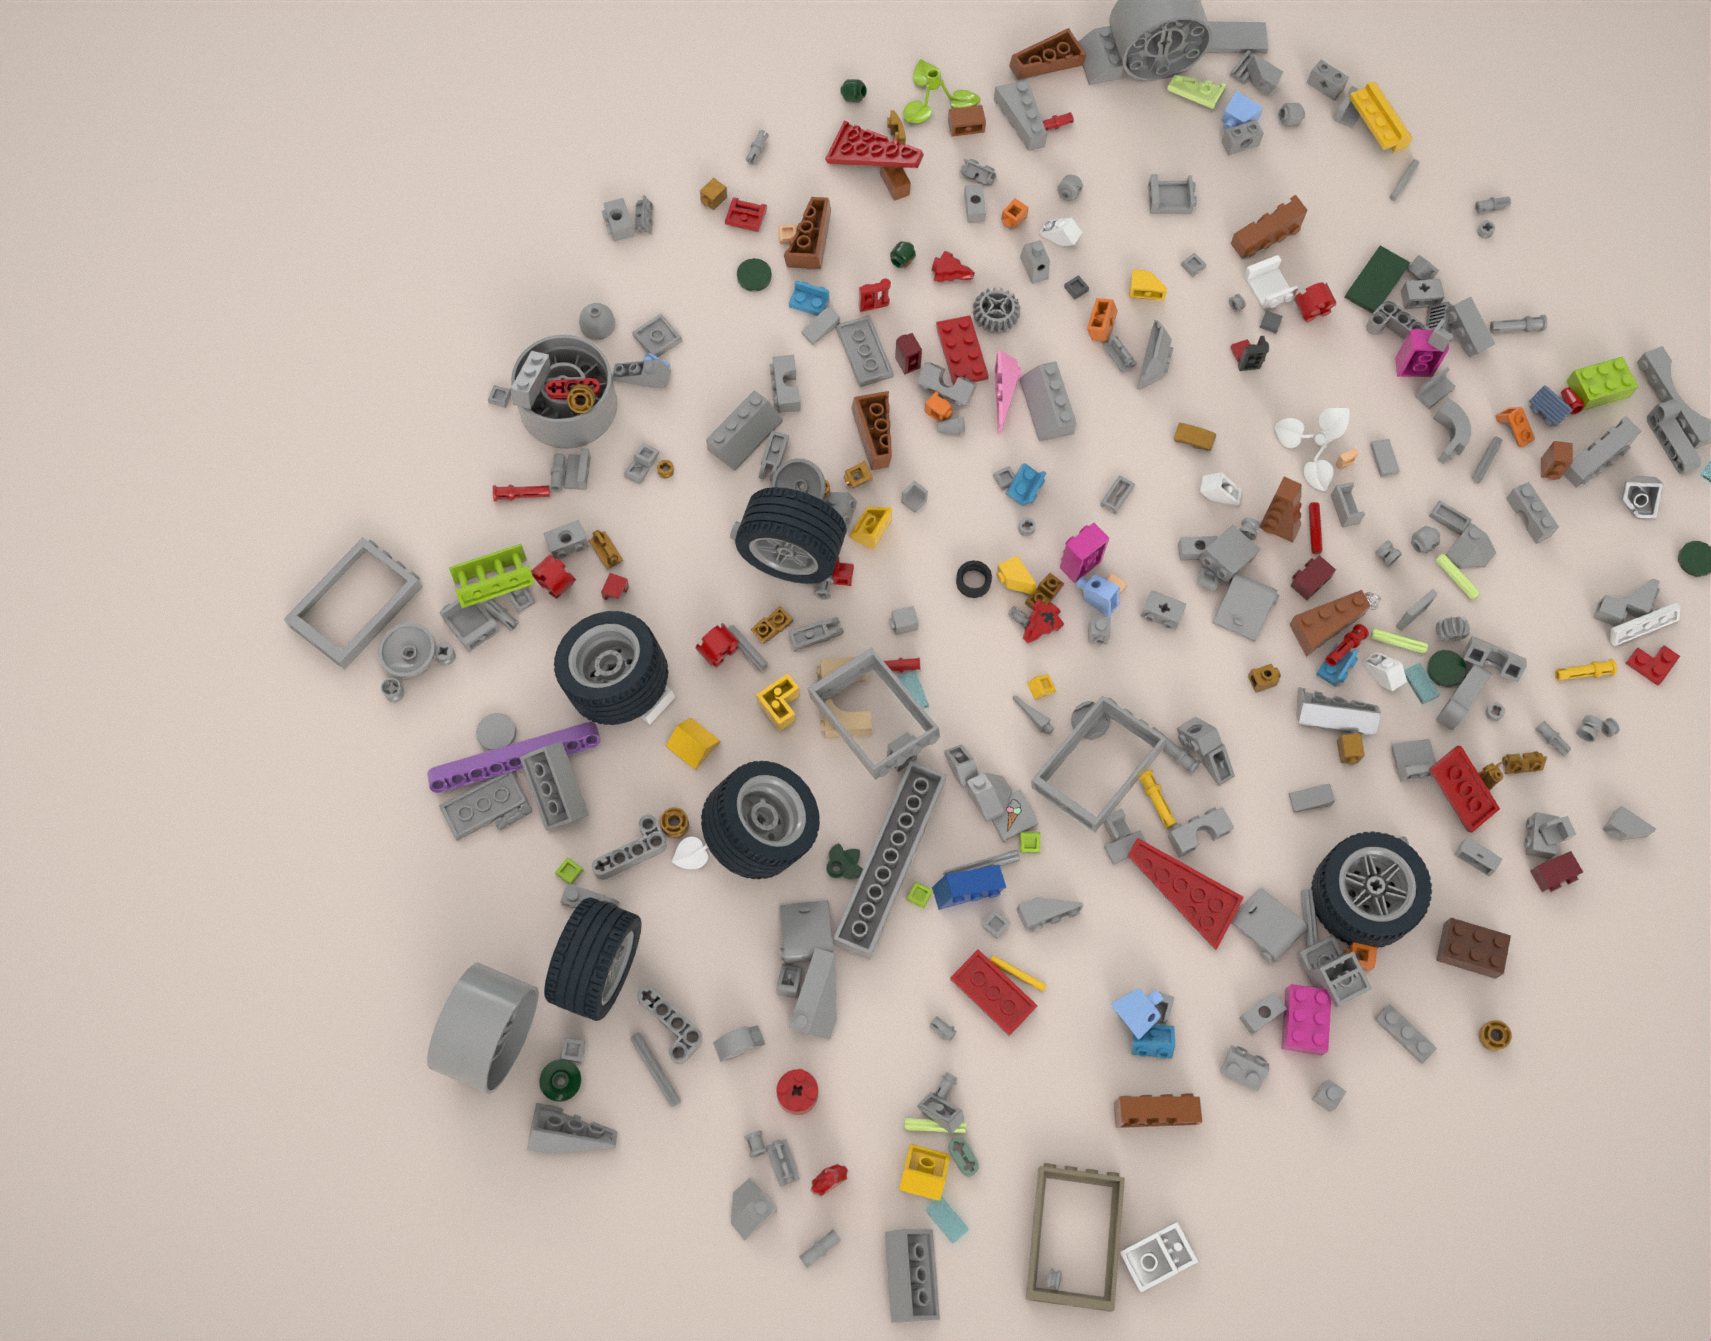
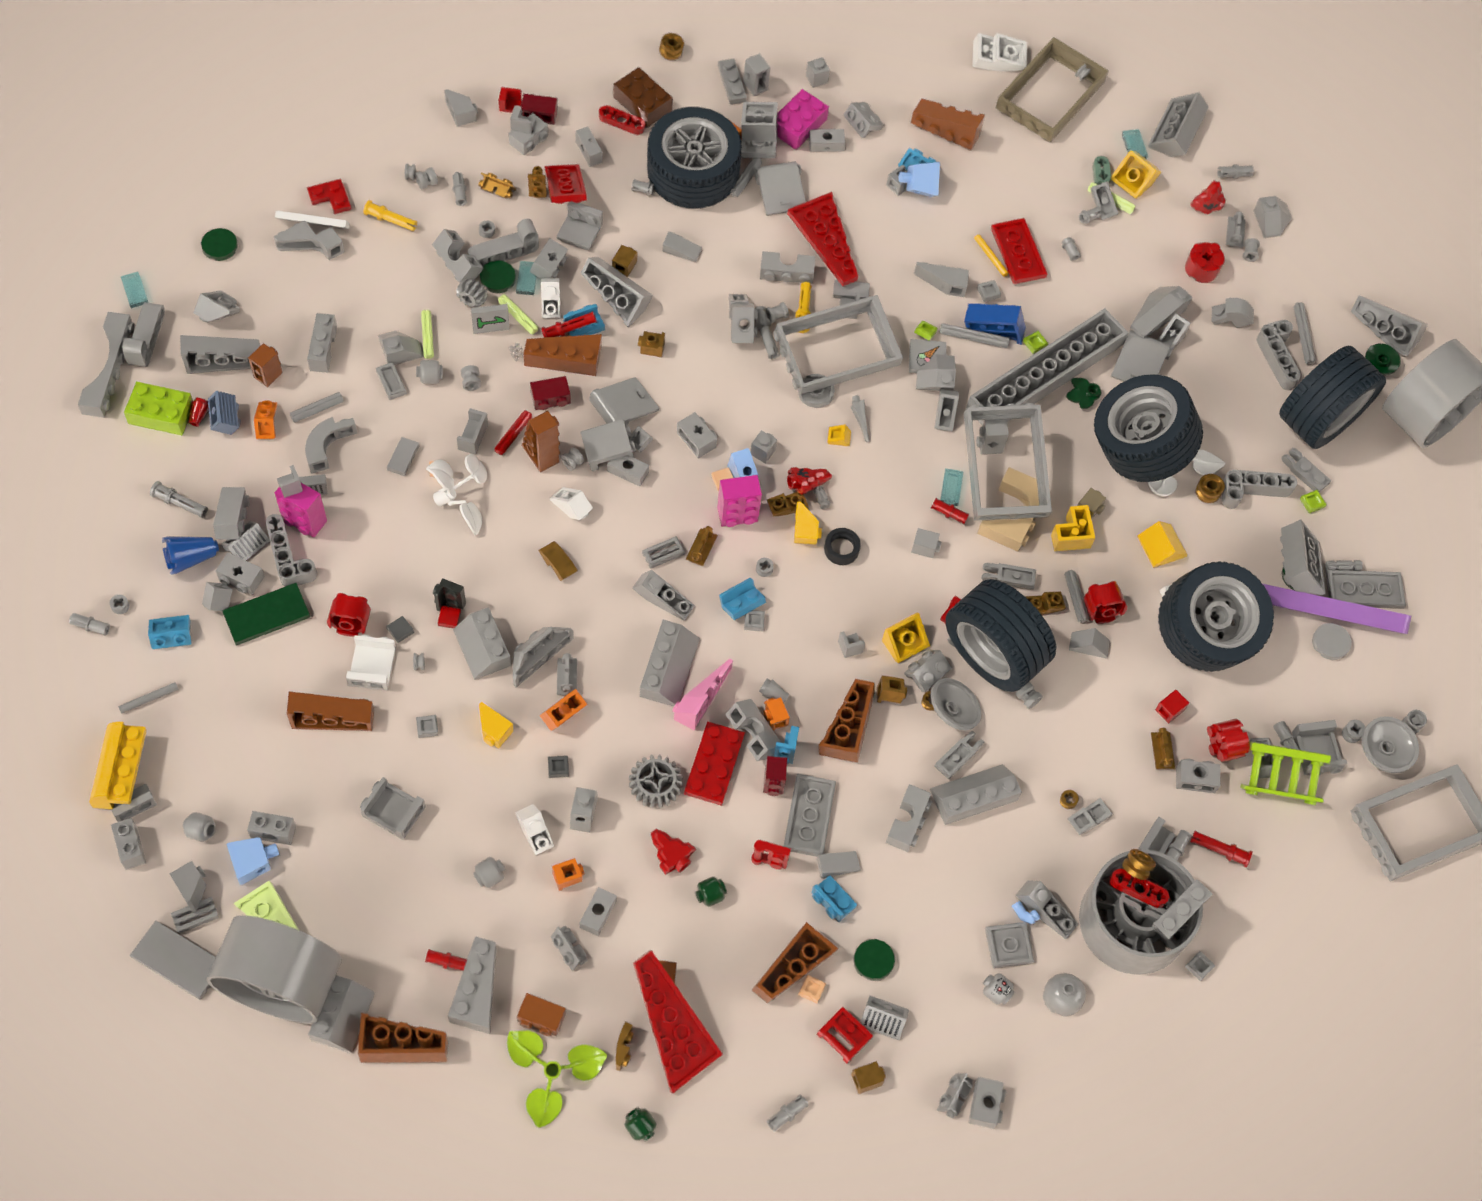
camera: 155 degrees left, 5 degrees down
(649, 297) = (998, 988): none -> light grey head
(712, 609) = (1089, 642): none -> light grey slope
(724, 241) = (884, 1017): none -> light grey panel
(777, 742) = (1094, 500): none -> dark tan brick
(911, 380) = (787, 748): none -> dark azure bracket
(1089, 511) = (702, 546): none -> pearl gold hinge
(1092, 454) = (662, 594): none -> light grey slope
(1177, 777) = (777, 312): none -> light grey bush
(1199, 342) = (482, 644): none -> light grey slope
(1386, 1043) = (756, 74): none -> light grey brick
(1416, 692) = (549, 259): none -> light grey brick
(1433, 228) = (169, 632): none -> dark azure bracket
(1475, 281) = (187, 551): none -> blue cone
(1480, 907) = (616, 114): none -> red beam
(1592, 865) = (509, 98): none -> red panel

